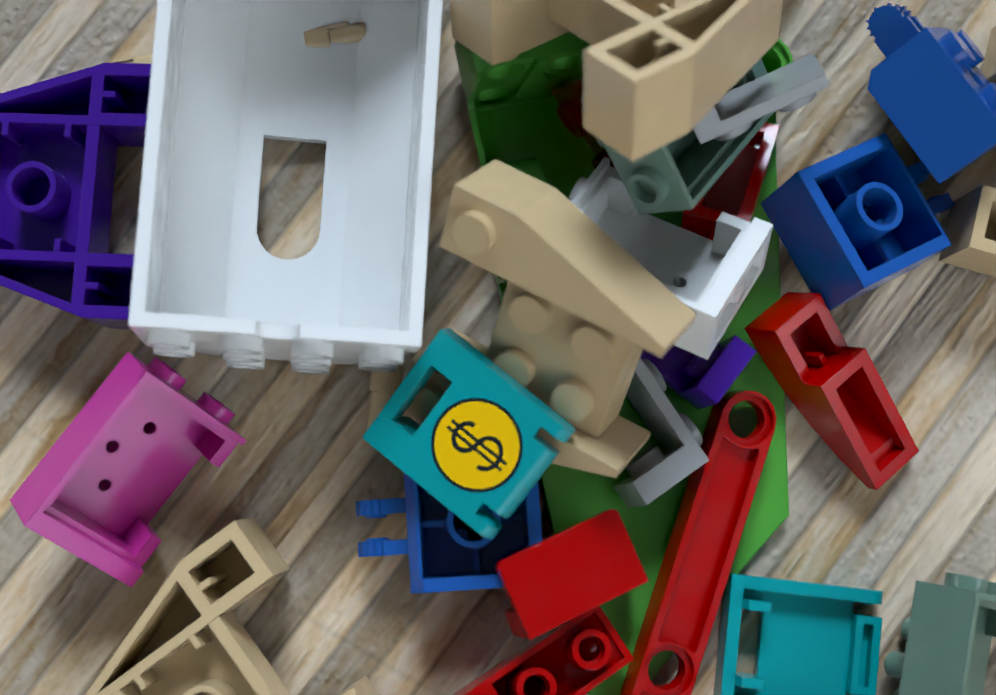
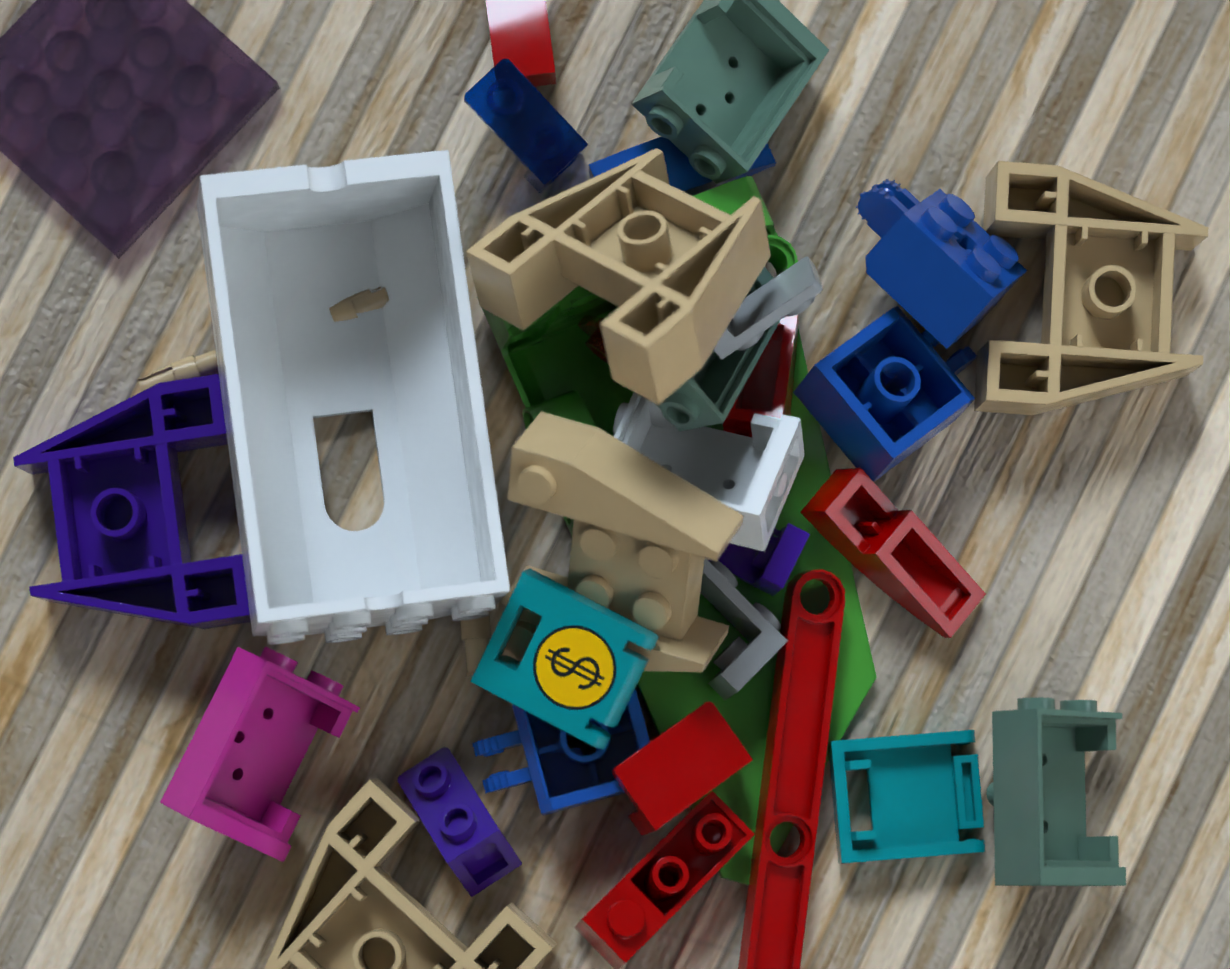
camera: 10 degrees left, 0 degrees up
(324, 580) = (458, 821): none -> dark purple bracket

